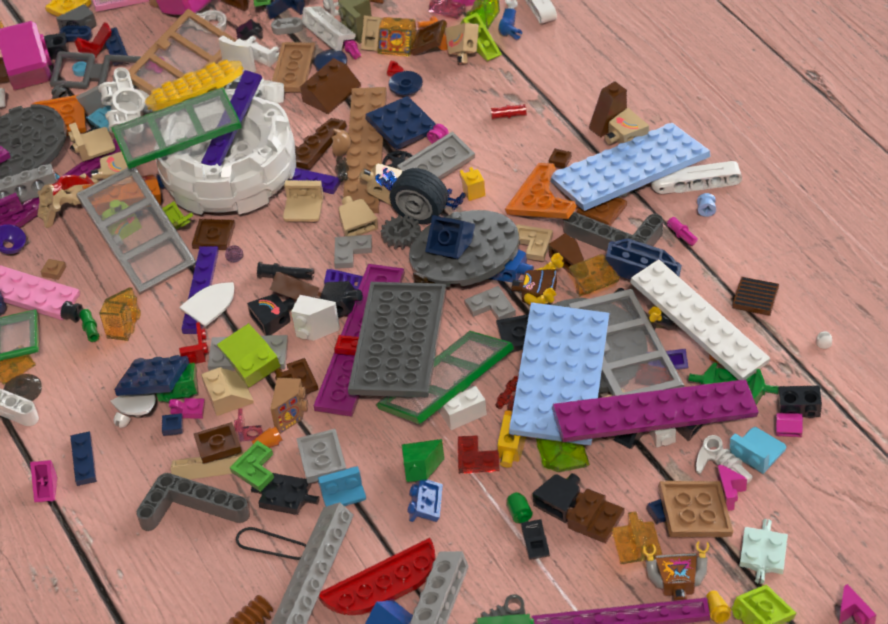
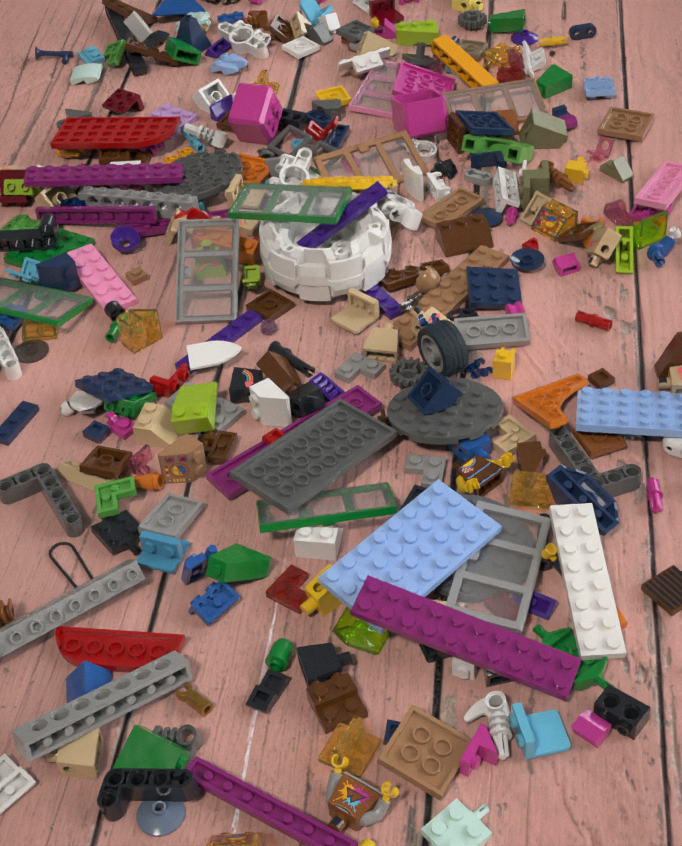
camera: 35 degrees right, 5 degrees down
(390, 477) = (196, 565): none -> blue plate
(441, 73) = (566, 264): none -> dark pink piece
(485, 579) = (195, 700): none -> pearl gold bar

